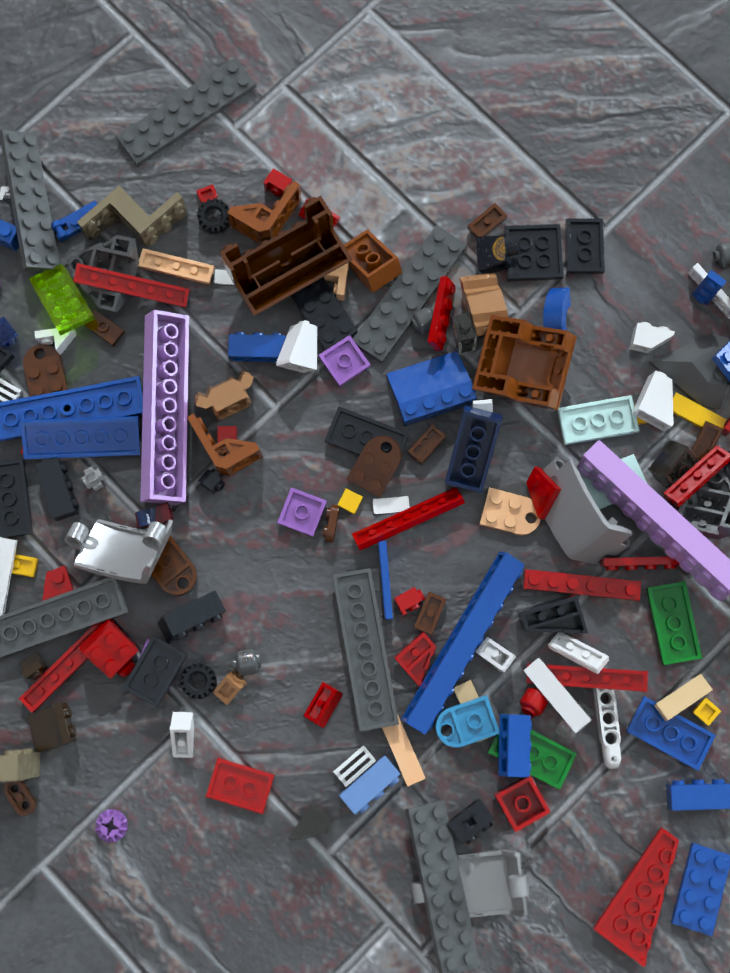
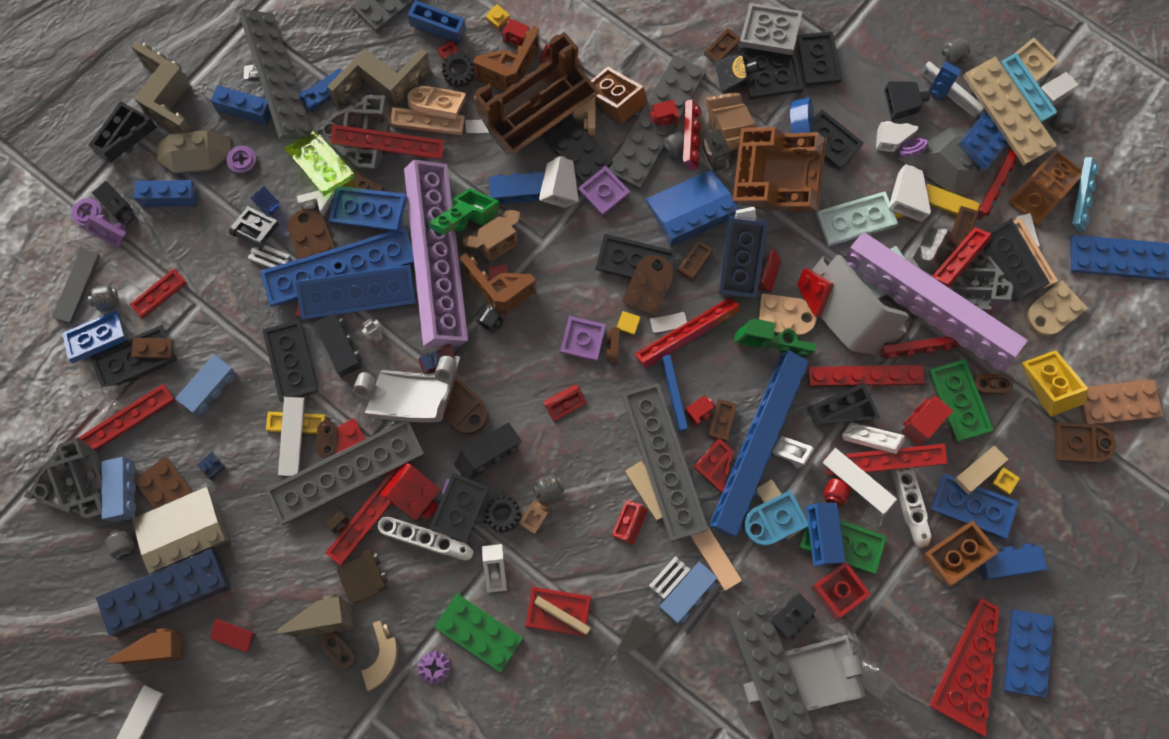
camera: 10 degrees left, 5 degrees down
(34, 584) = (326, 439): none -> reddish brown plate
(65, 812) = (386, 661): none -> tan arch
(104, 352) = (368, 208): none -> blue plate
(146, 710) = (415, 539): none -> white piece
(159, 796) = (478, 632): none -> green plate
(187, 247) = (436, 101): none -> light nougat plate
(198, 163) = (437, 22): none -> blue brick
(205, 362) = (466, 206): none -> green plate
(241, 792) = (561, 615): none -> tan tile
(262, 163) = (497, 16): none -> yellow plate
(275, 575) = (564, 402): none -> red slope
(339, 664) = (641, 482): none -> tan tile
(416, 287) = (664, 113): none -> red brick
(482, 532) = (760, 334): none -> green plate
(501, 465) = (770, 271): none -> red slope
(539, 209) = (771, 28): none -> light grey plate
(591, 338) = (840, 142): none -> black plate
(635, 641) = (926, 421): none -> red brick
(647, 782) = (959, 554): none -> dark orange slope
(666, 299) = (904, 98): none -> black torso
(667, 352) = (913, 147): none -> medium lavender gear
(709, 610) = (992, 383): none -> reddish brown plate

